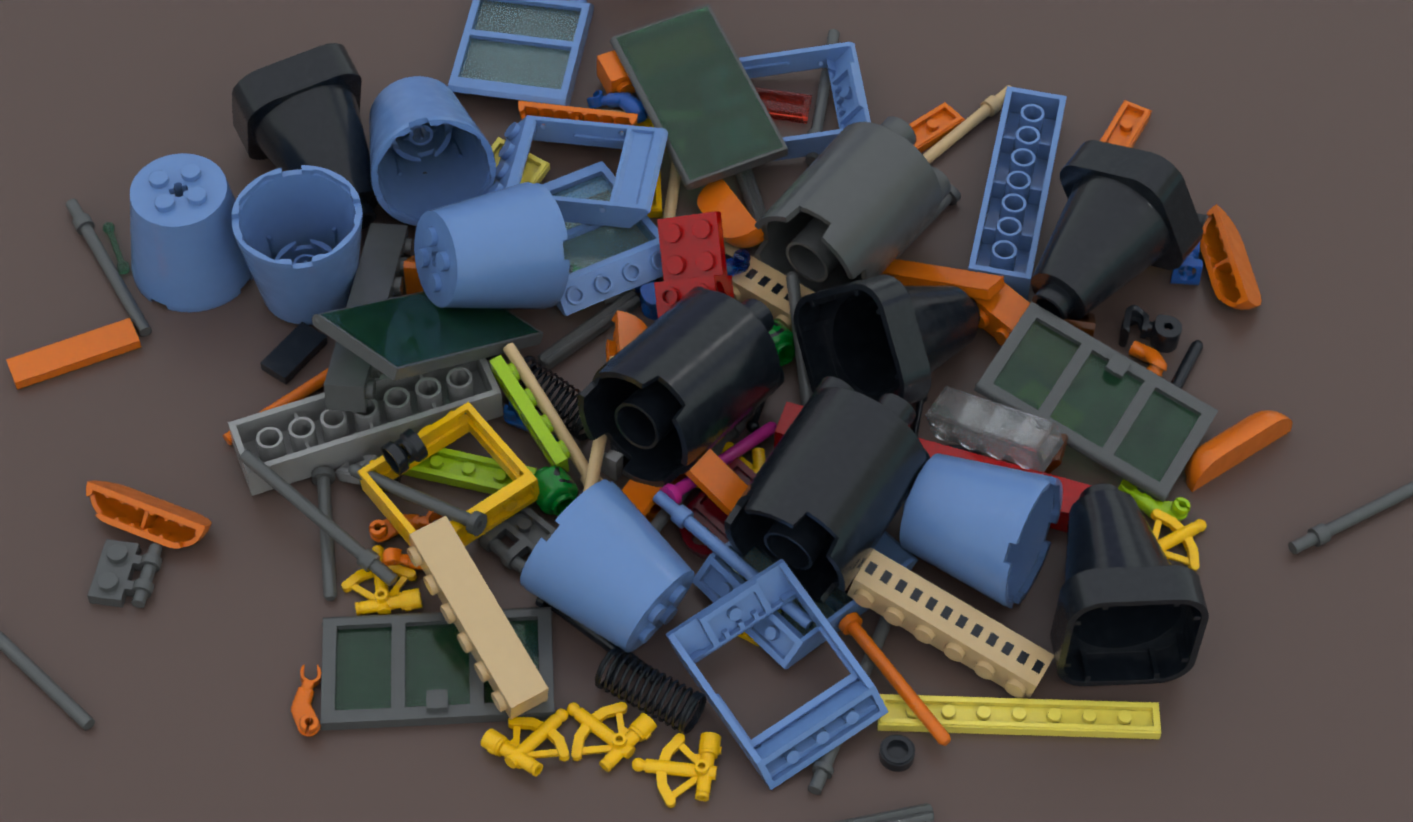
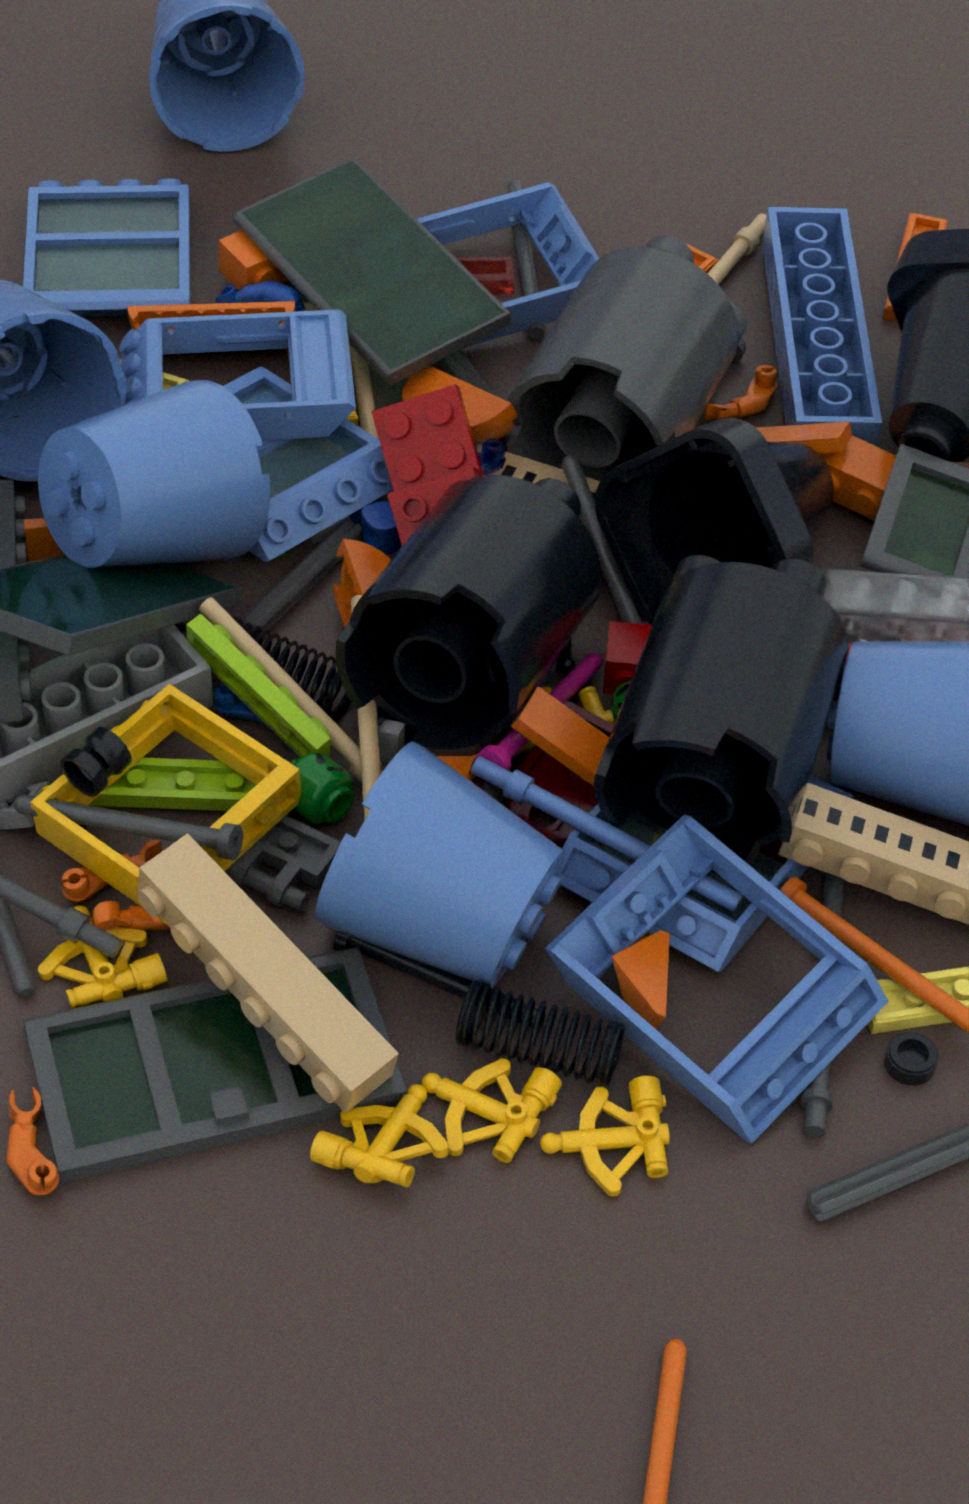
camera: 15 degrees left, 5 degrees down
(728, 664) = (644, 976): none -> orange slope
(953, 241) = (753, 402): none -> orange arm

